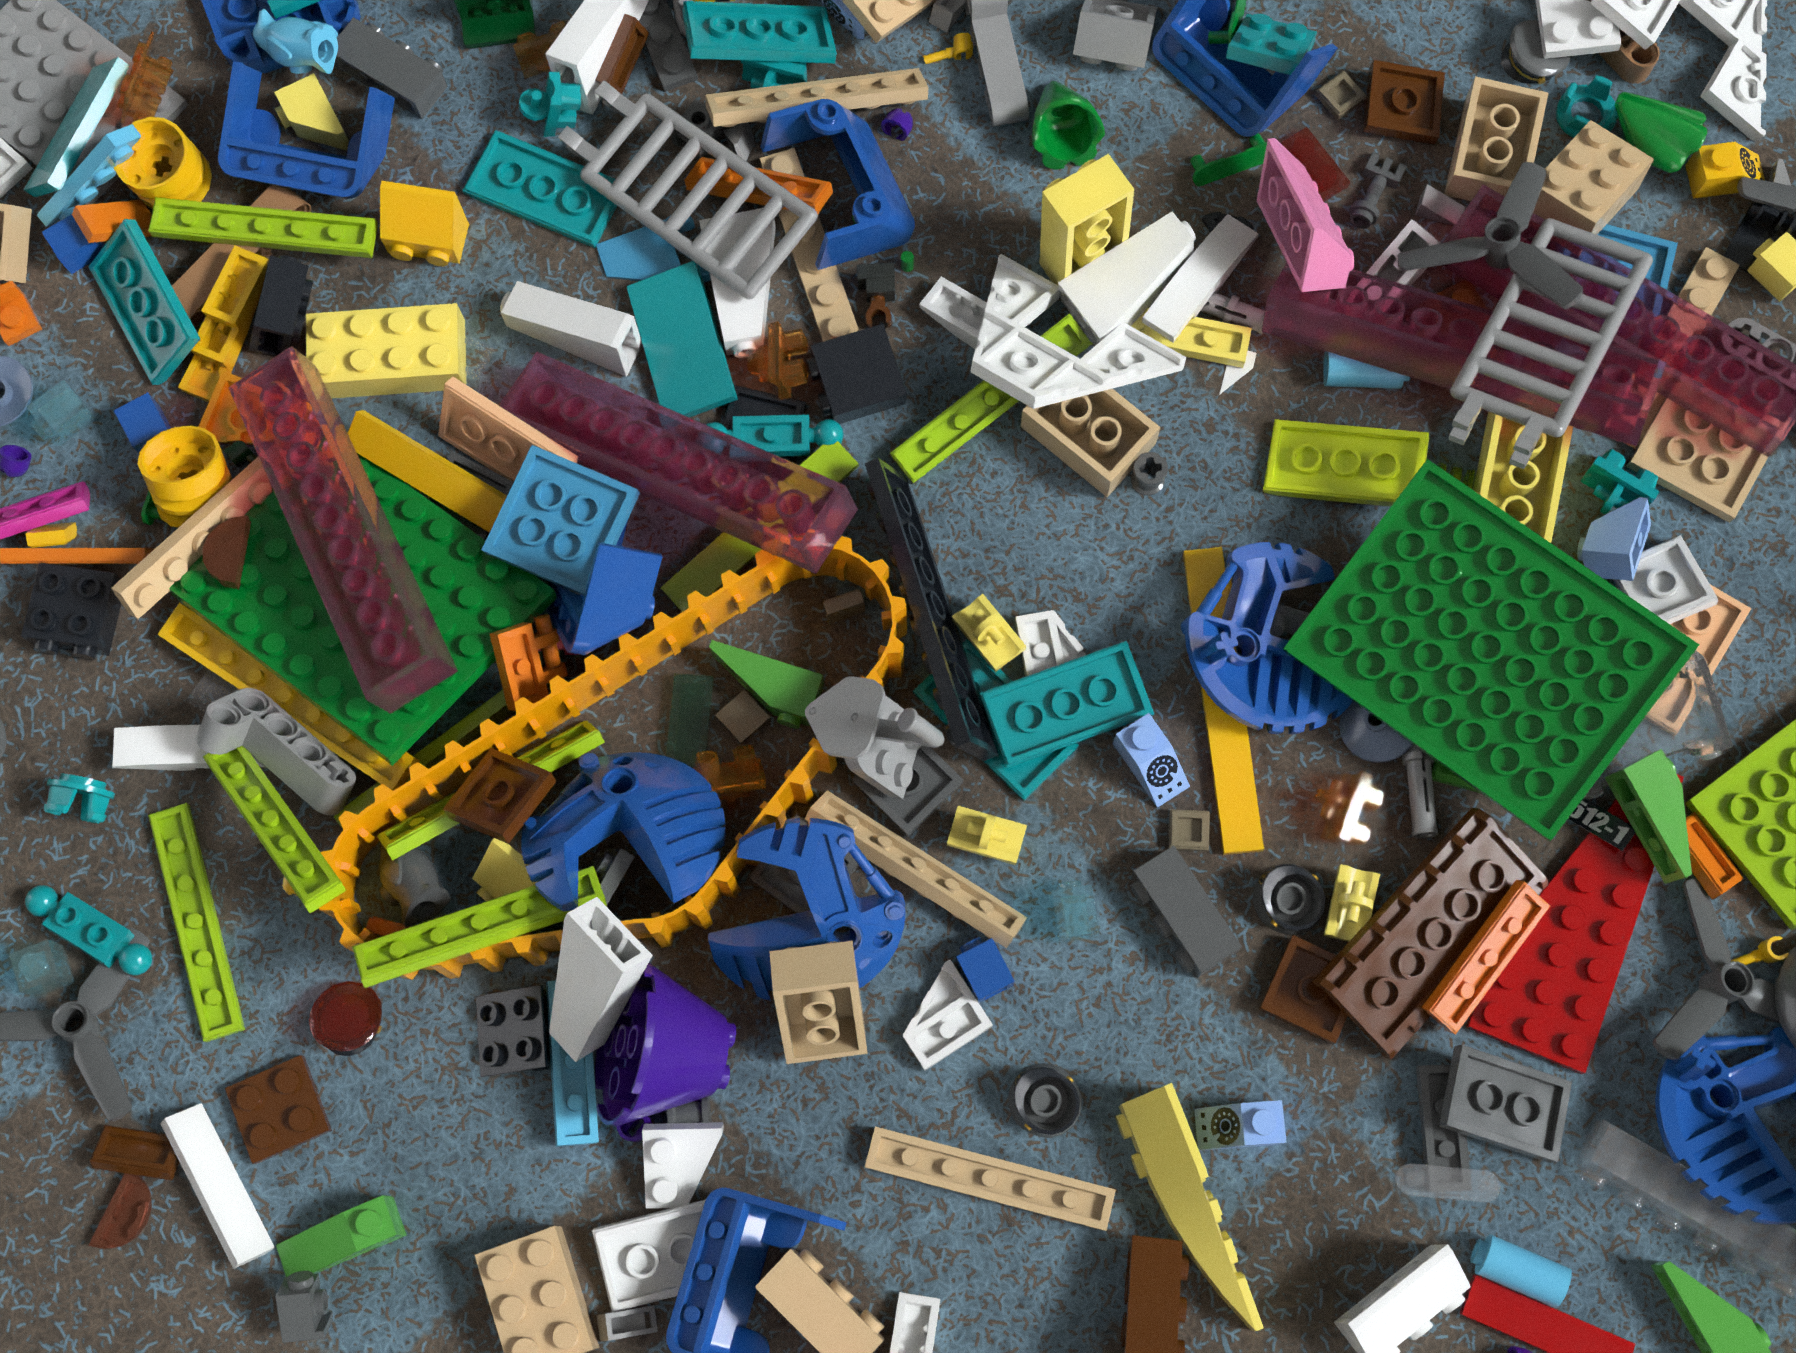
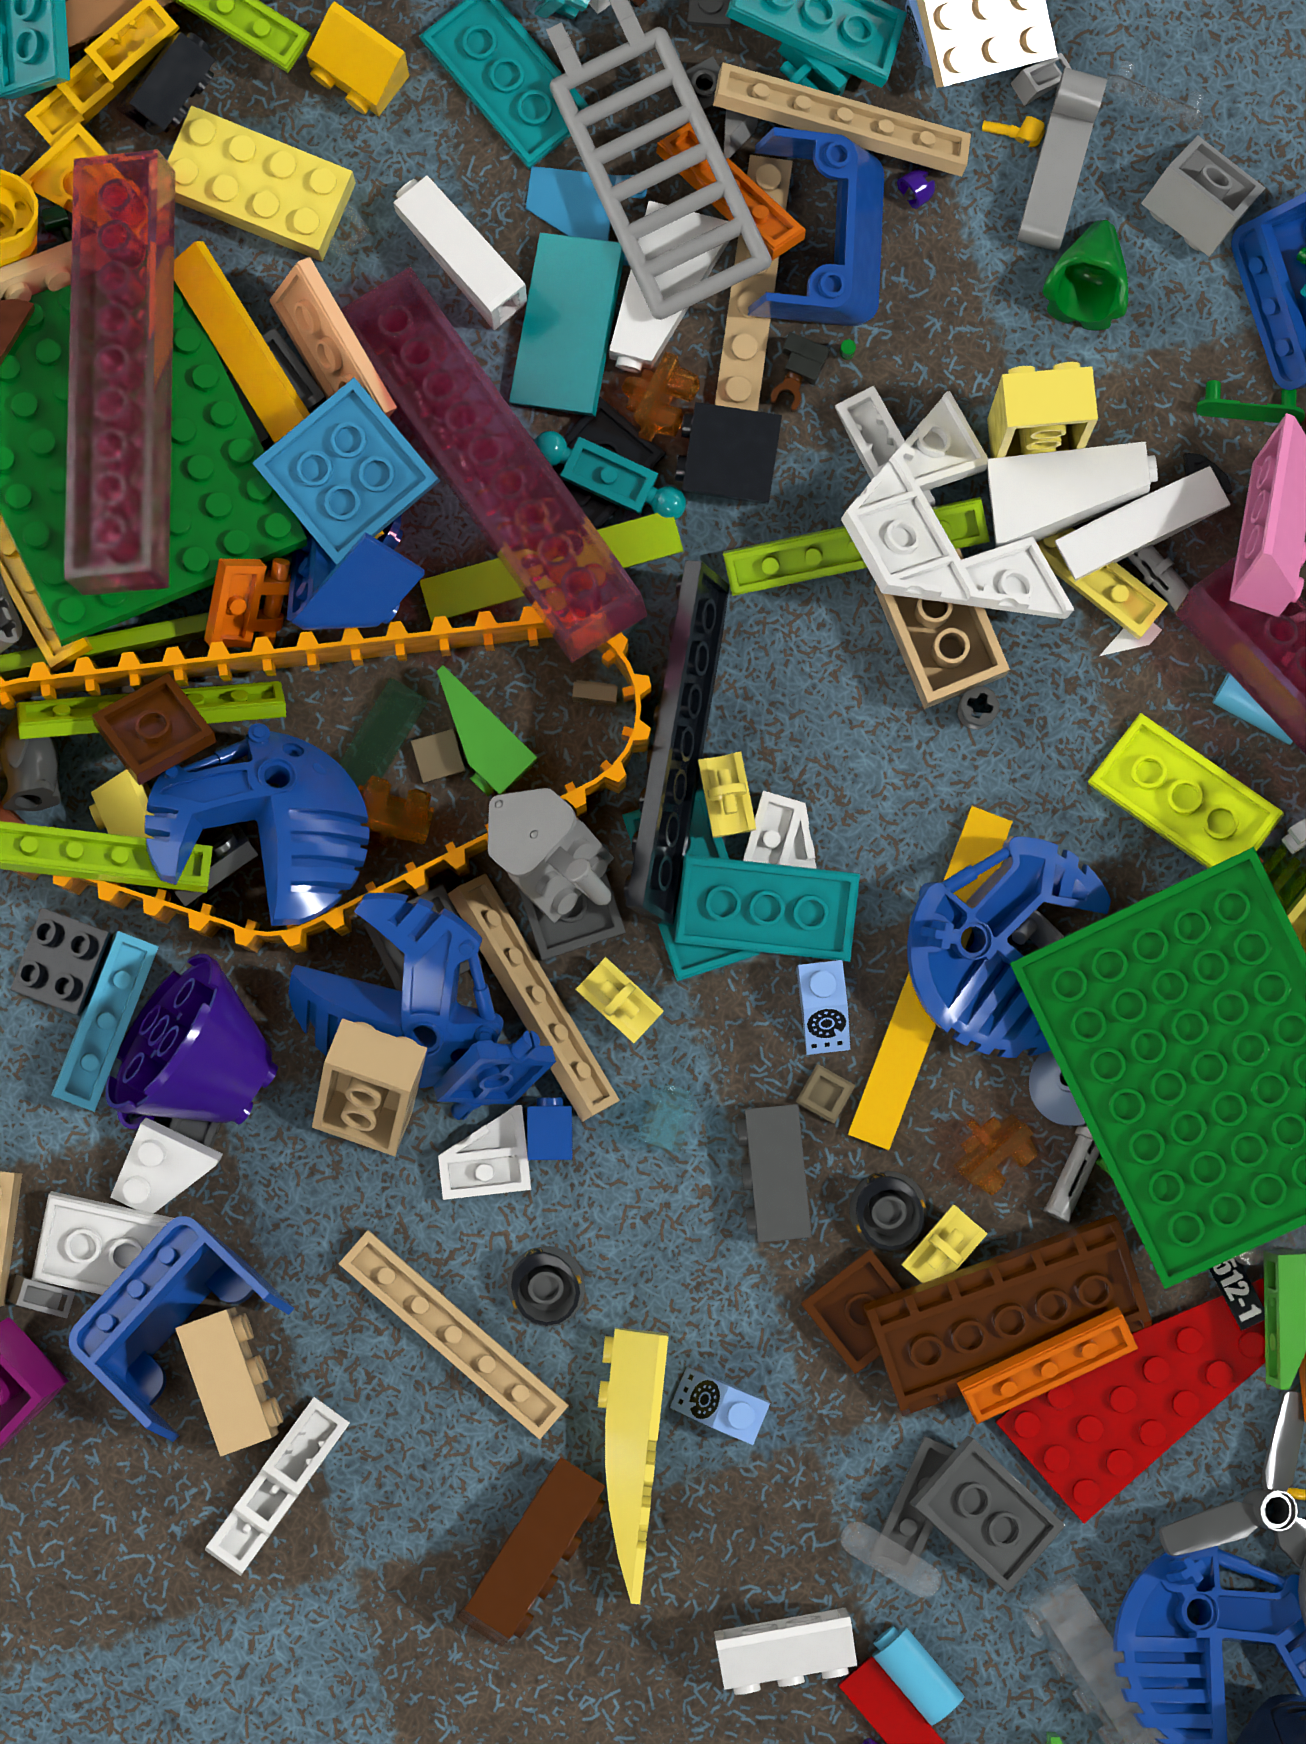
camera: 20 degrees right, 10 degrees up
(594, 977) = (161, 958): white slope -> none
(916, 941) = (493, 1074): none -> blue plate

